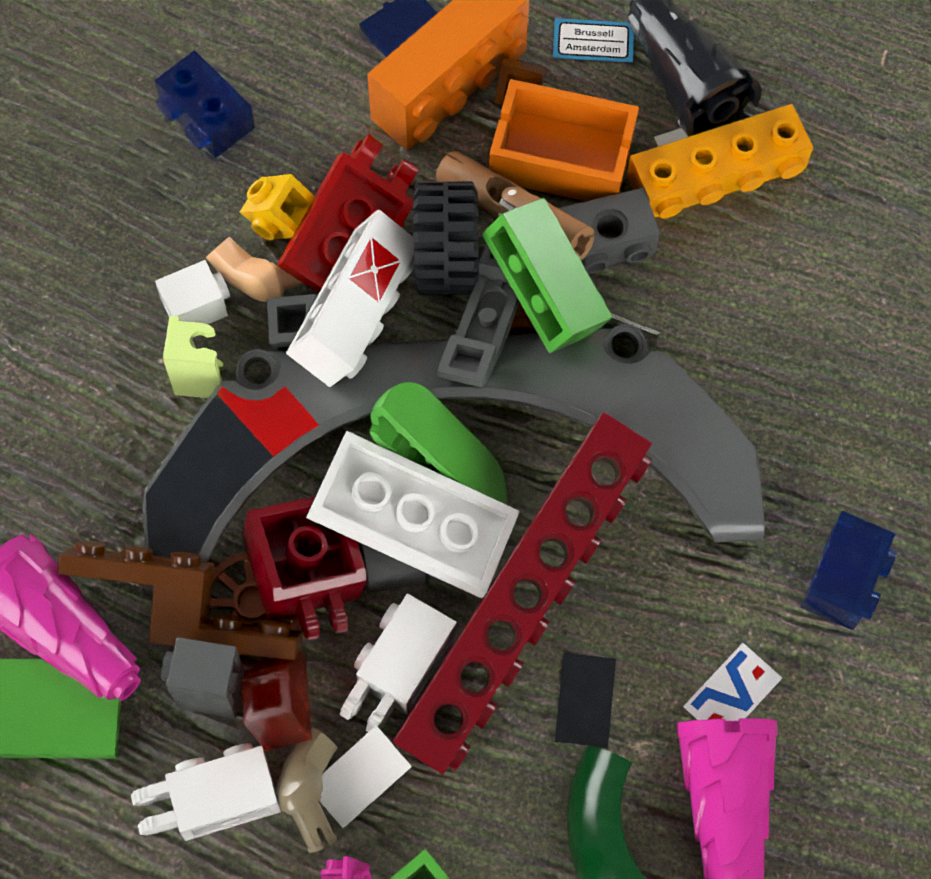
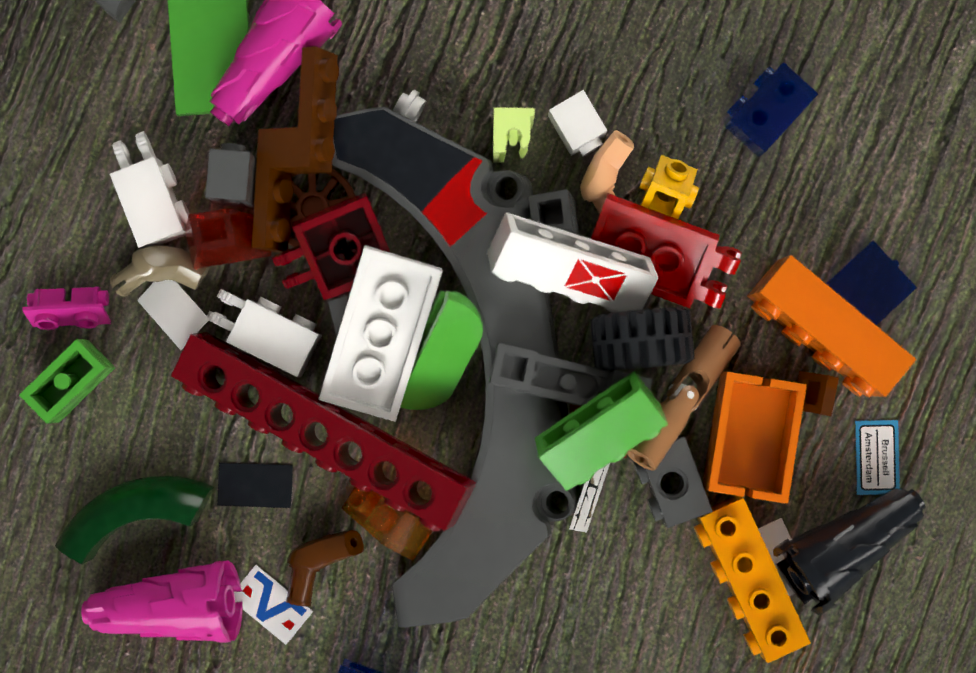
camera: 85 degrees right, 20 degrees up
(142, 473) = (410, 105): none -> white plate
(633, 539) = (391, 527): none -> clear orange slope
(675, 625) = (316, 555): none -> reddish brown arm

